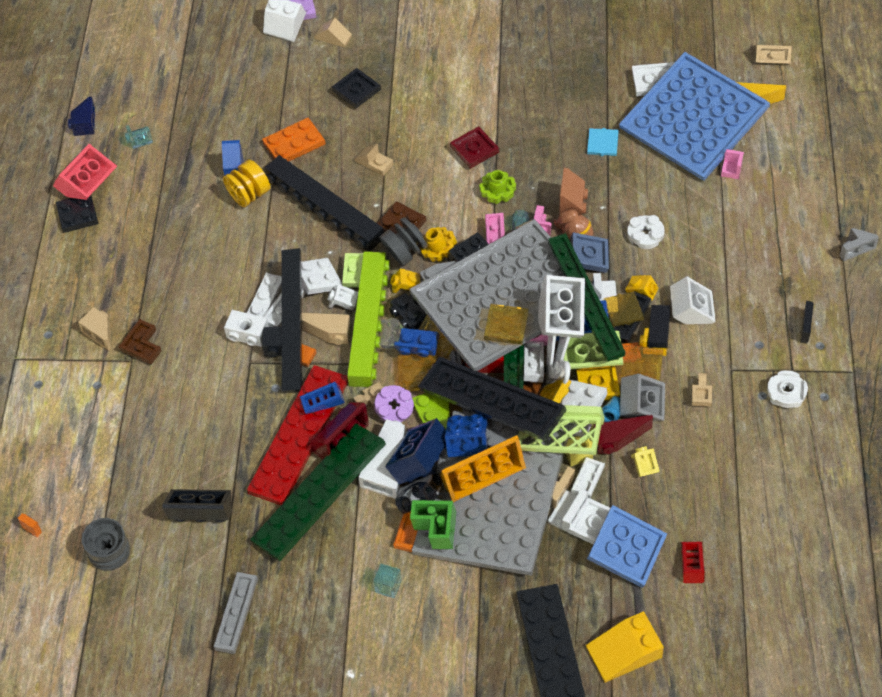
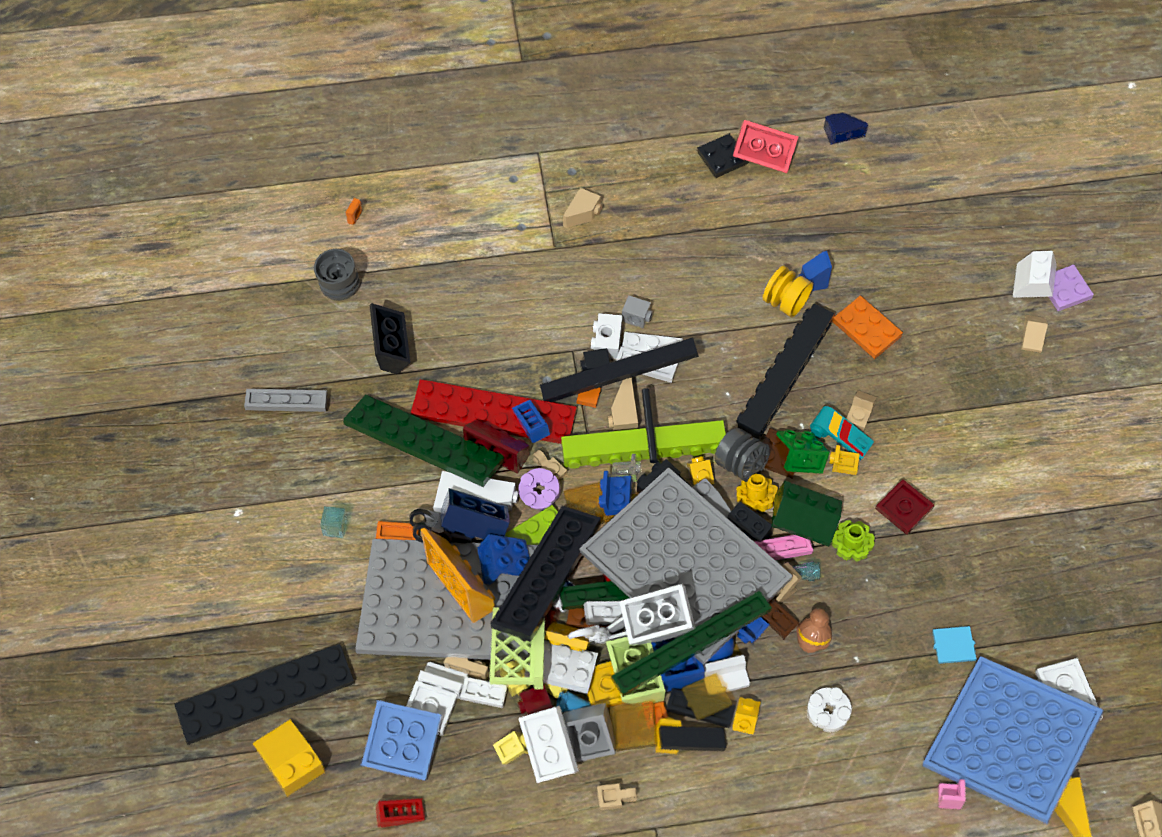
camera: 75 degrees right, 5 degrees up
(138, 137) = (831, 181): clear light blue bracket -> none
(138, 345) = (571, 245): reddish brown plate -> none
(226, 301) = (636, 312): none -> light grey brick
(319, 276) = (687, 386): white plate -> none
(343, 297) = (665, 414): white bracket -> none
(352, 270) = (705, 414): yellowish green plate -> none
(356, 88) = (958, 370): black plate -> none
(356, 304) = (649, 425): none -> black bar
(384, 180) = (841, 430): none -> teal door
(409, 196) = (805, 452): none -> green bracket
(422, 178) = (844, 461): none -> yellow bracket
(438, 518) = (395, 551): bright green brick -> none
(470, 208) = (806, 513): none -> dark green slope
(506, 324) = (637, 568): clear yellow plate -> none
(540, 217) = (812, 590): bright pink bracket -> none
(573, 192) = (853, 617): nougat slope -> none
(591, 251) = (779, 650): sand blue plate -> none
(652, 426) = (548, 744): none -> white plate
(692, 302) = (734, 772): white slope -> none

